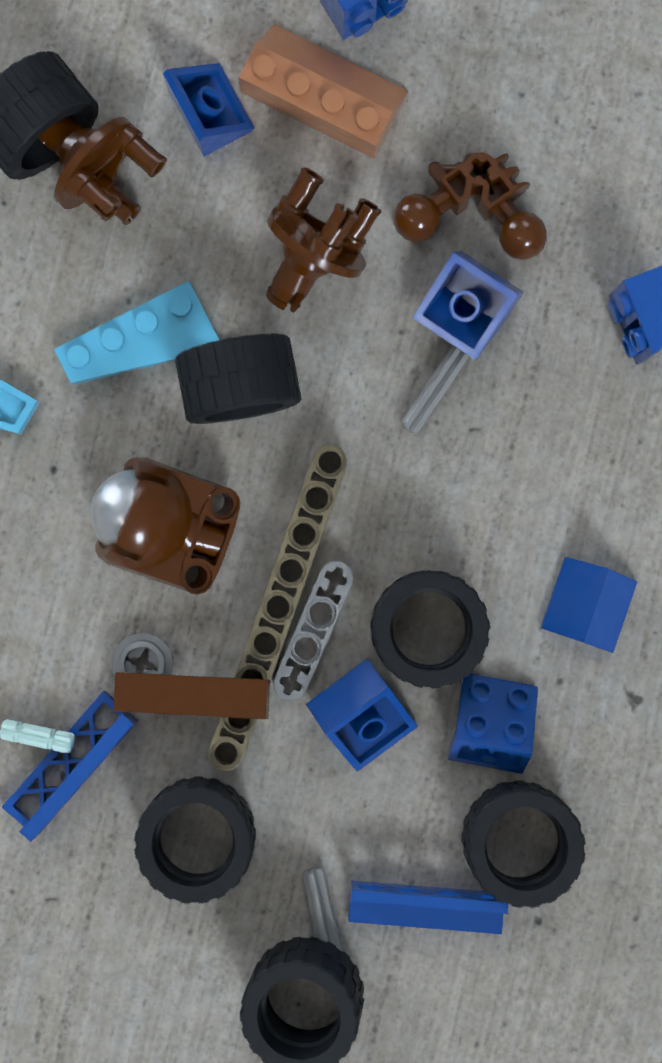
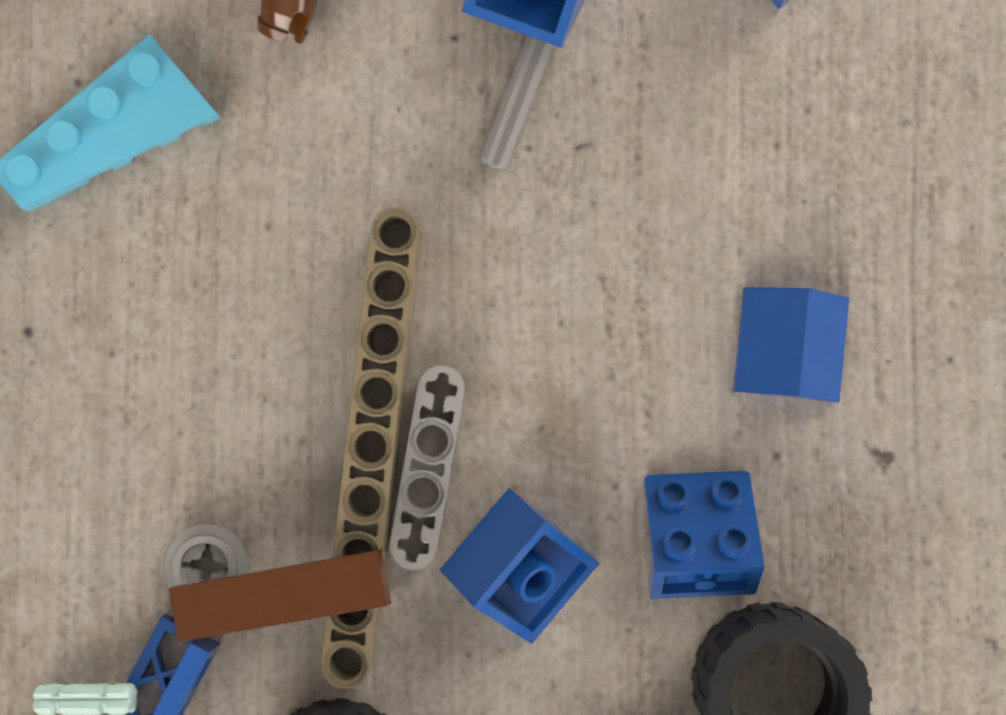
camera: 10 degrees left, 0 degrees up
(163, 523) = (183, 369): reddish brown piece -> none
(238, 378) = (239, 144): black tyre -> none
(474, 641) = (648, 436): black tyre -> none

